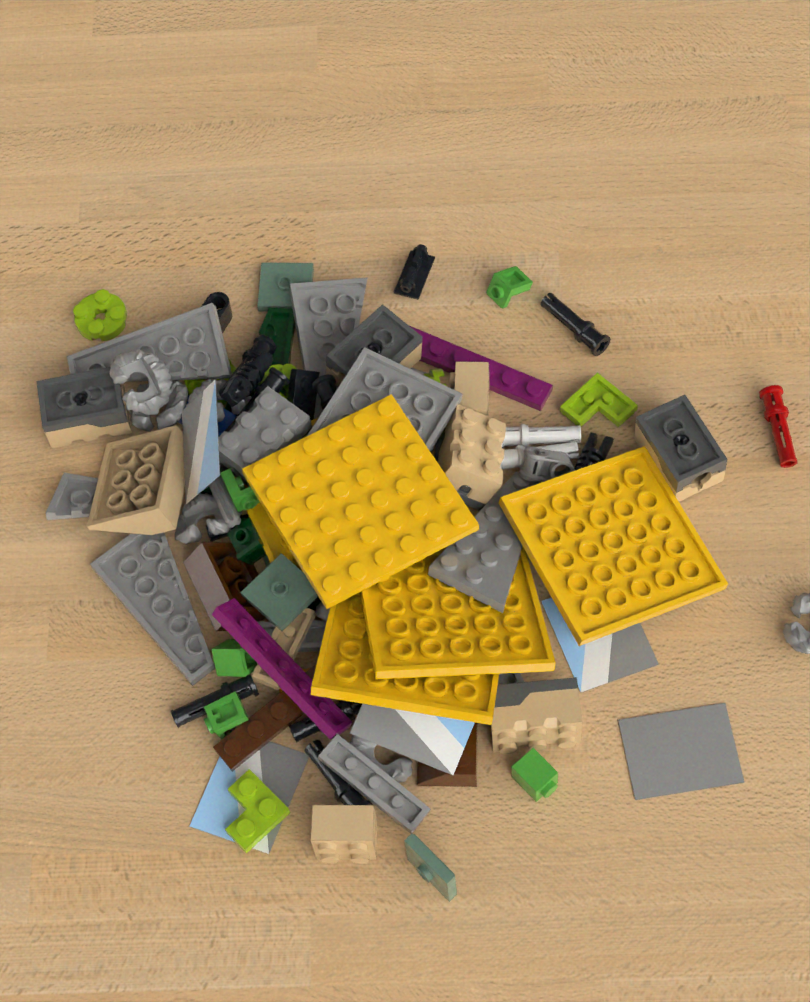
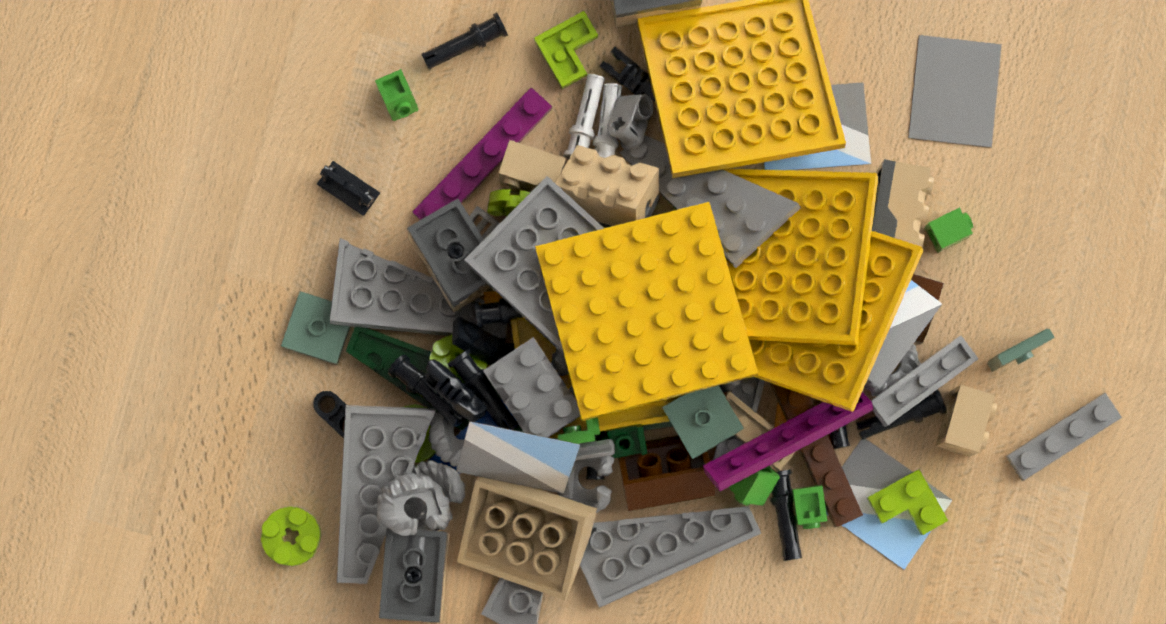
camera: 80 degrees left, 20 degrees up
(360, 944) = (1063, 437): none -> light grey plate

